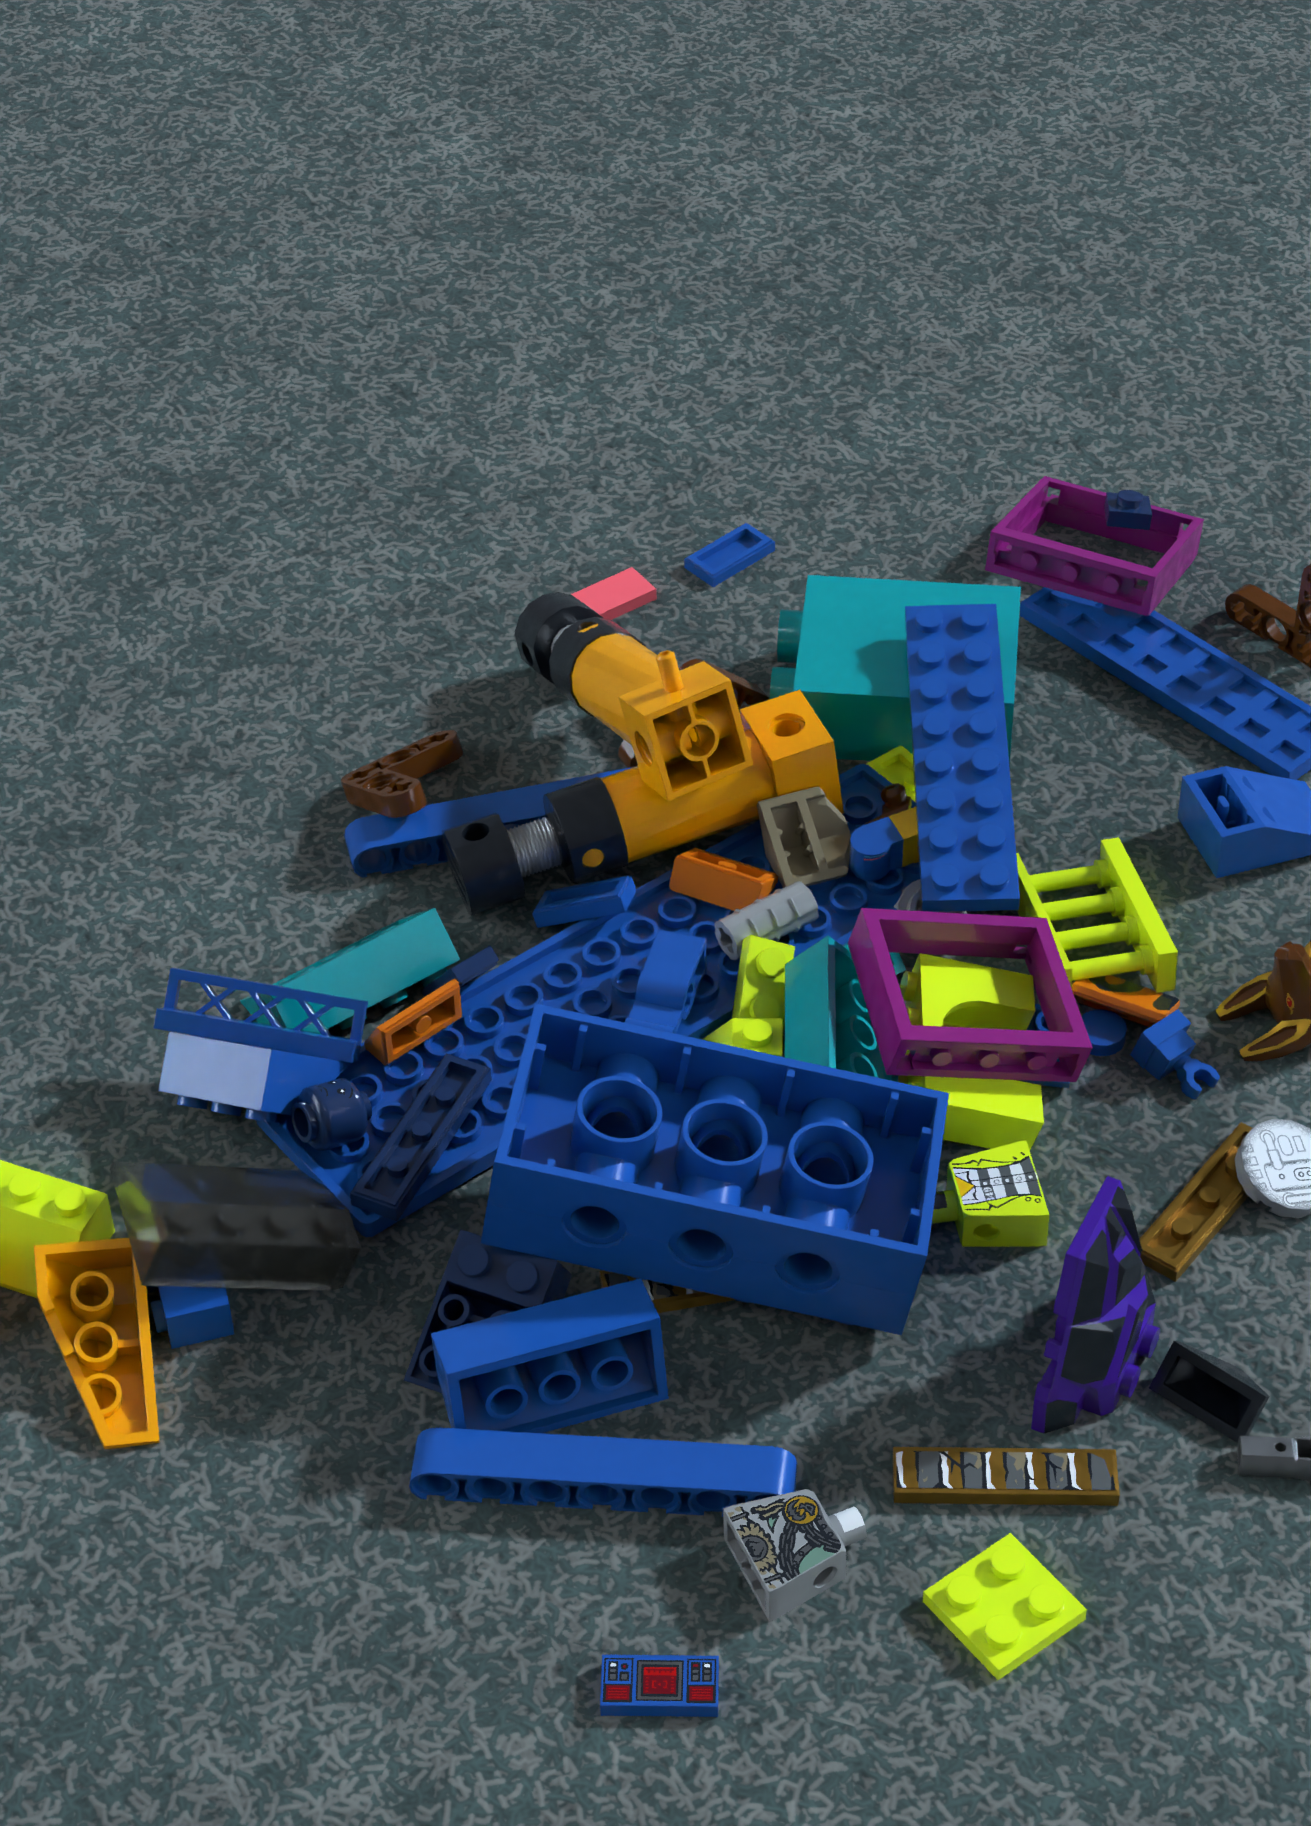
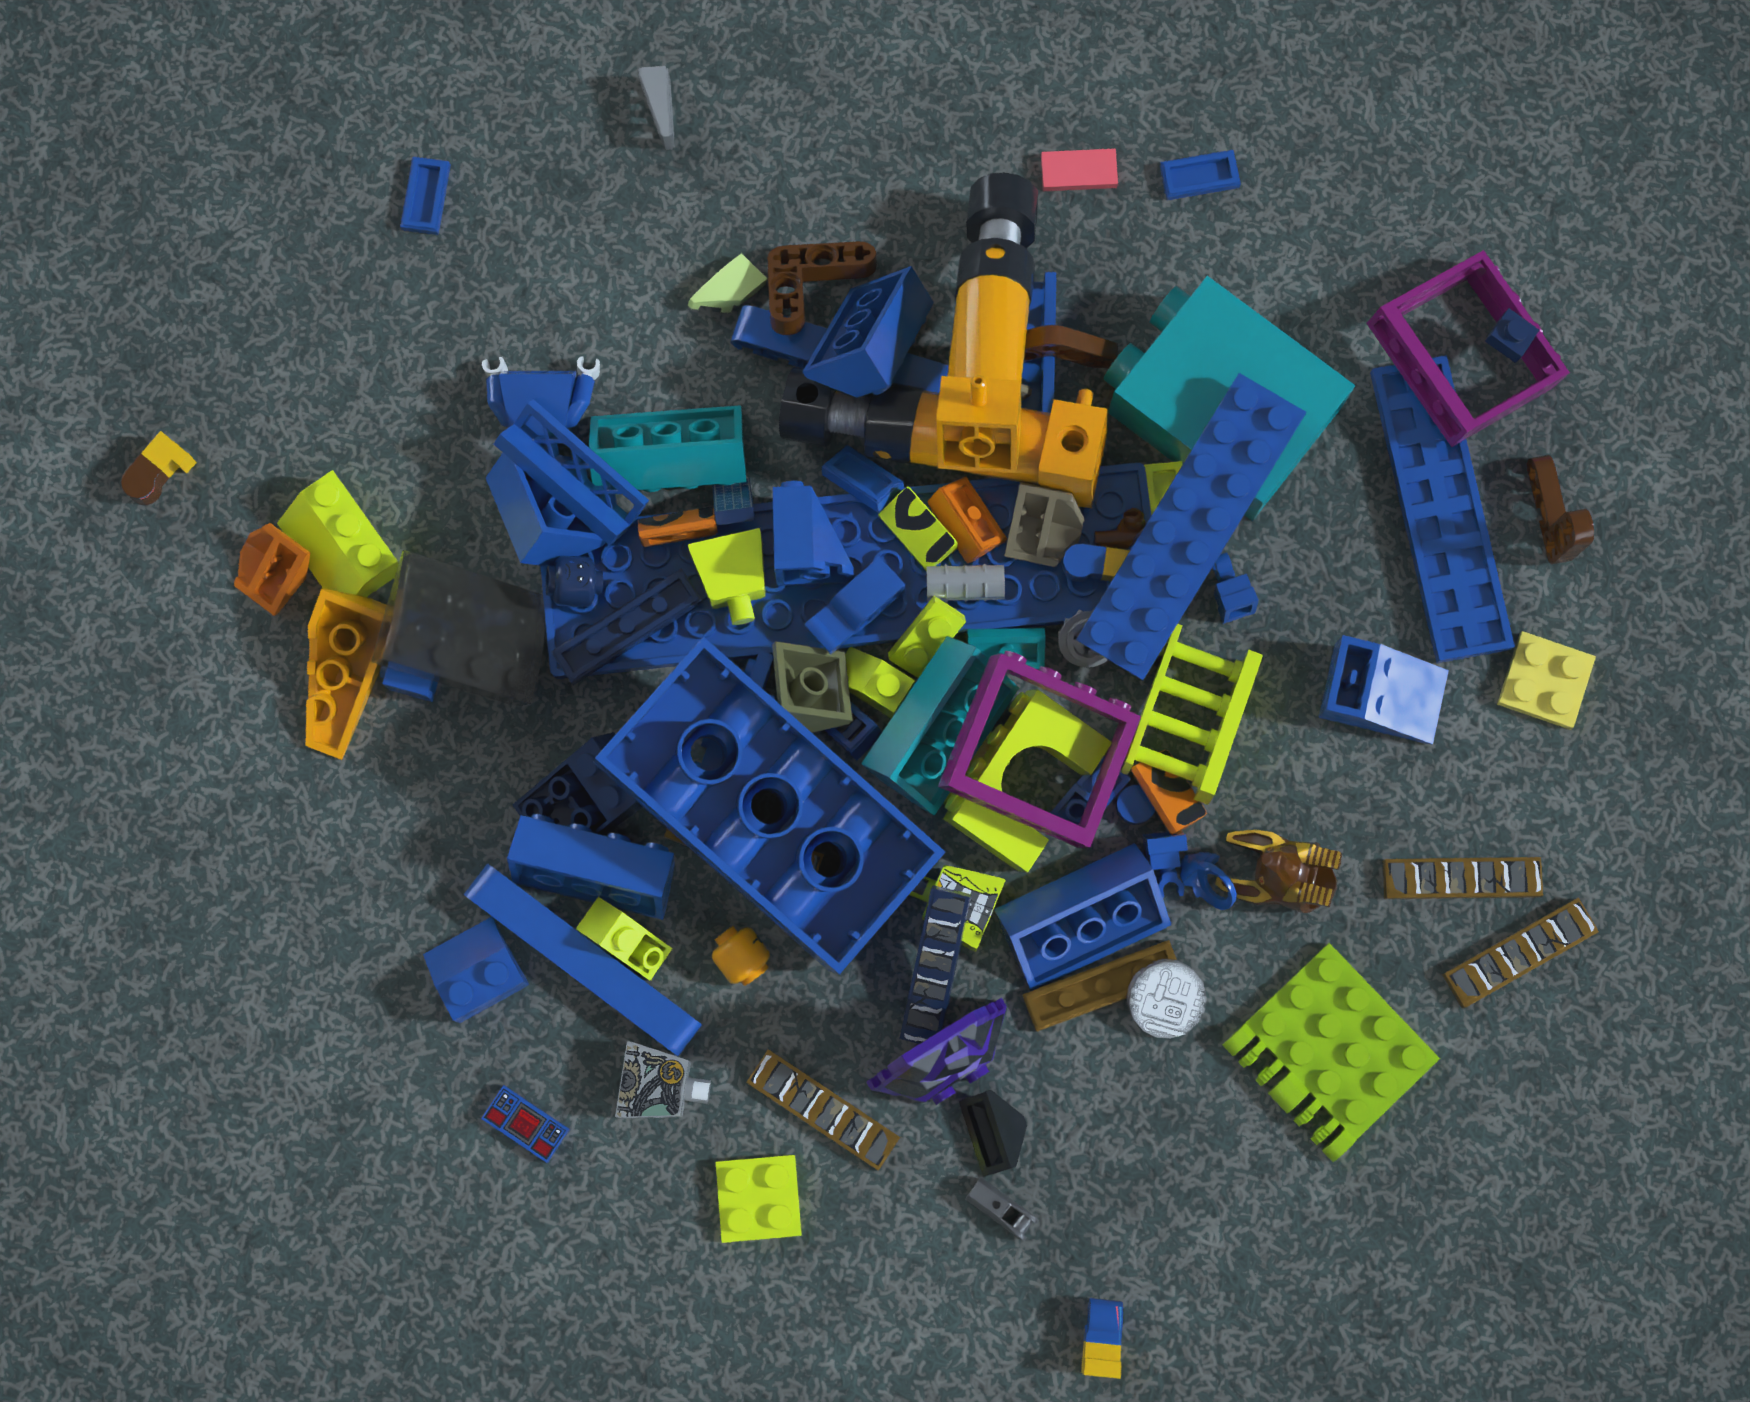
camera: 30 degrees right, 35 degrees up
(131, 721) = (657, 91): none -> light grey slope
(144, 990) = (556, 391): none -> blue torso
(316, 828) = (730, 286): none -> yellowish green slope
(484, 1554) = (474, 970): none -> blue slope
(493, 1022) = (732, 572): none -> neon yellow torso
(506, 766) = (871, 334): none -> blue slope
(568, 962) = (805, 541): none -> blue slope
(632, 1409) = (624, 938): none -> neon yellow slope
(678, 903) = (918, 529): none -> slope
(788, 1369) = (740, 955): none -> light orange head
(1012, 1248) = (935, 964): none -> tile
(1046, 819) = (1233, 594): none -> blue piece
(1140, 1129) = (1083, 916): none -> blue slope
(1215, 1050) = (1195, 874): none -> blue piece

